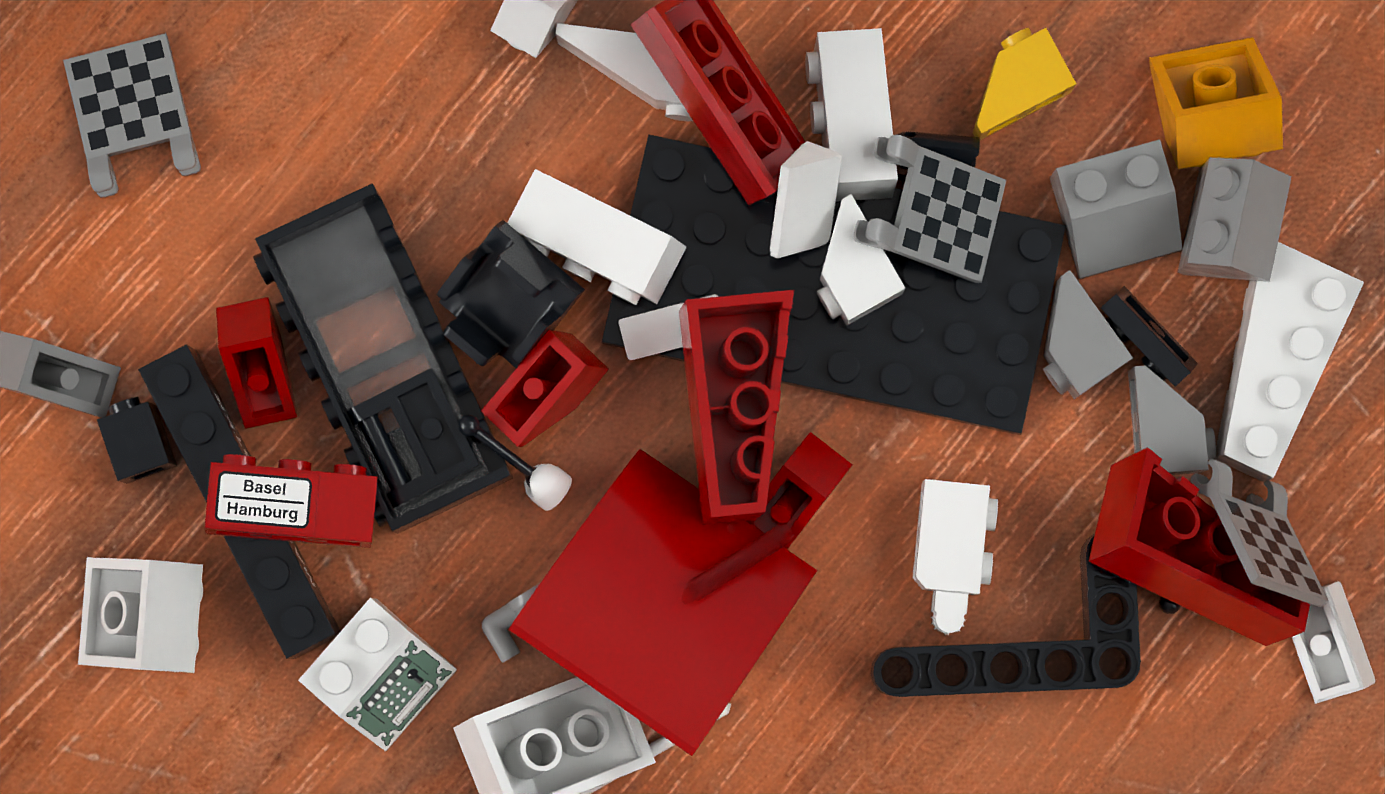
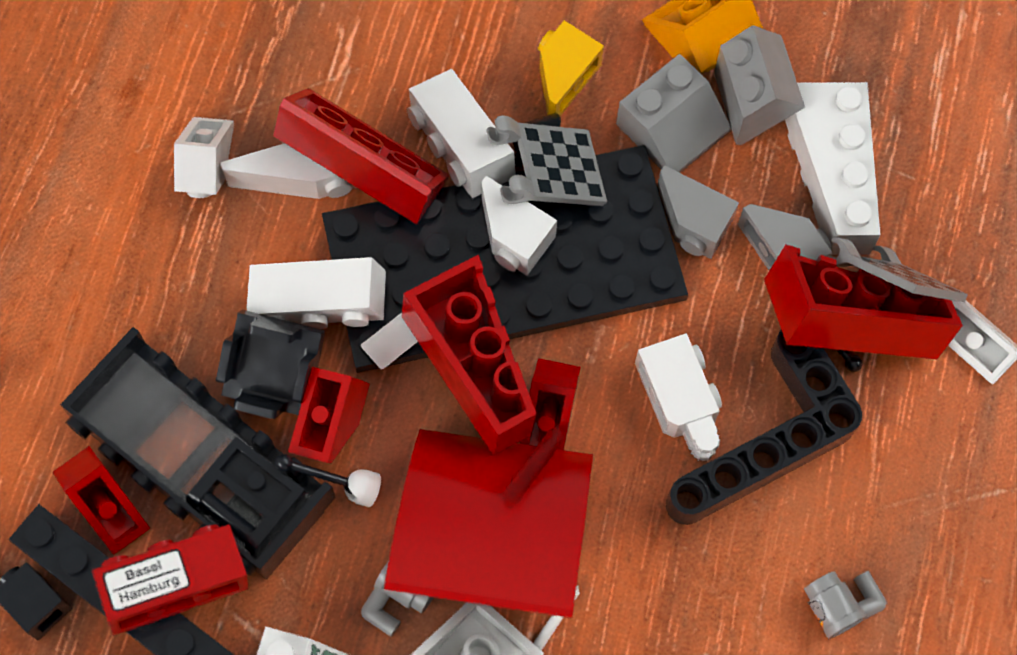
camera: 30 degrees left, 15 degrees down
(805, 200) = (456, 193): white slope -> none
(1160, 350) = (740, 188): black plate -> none

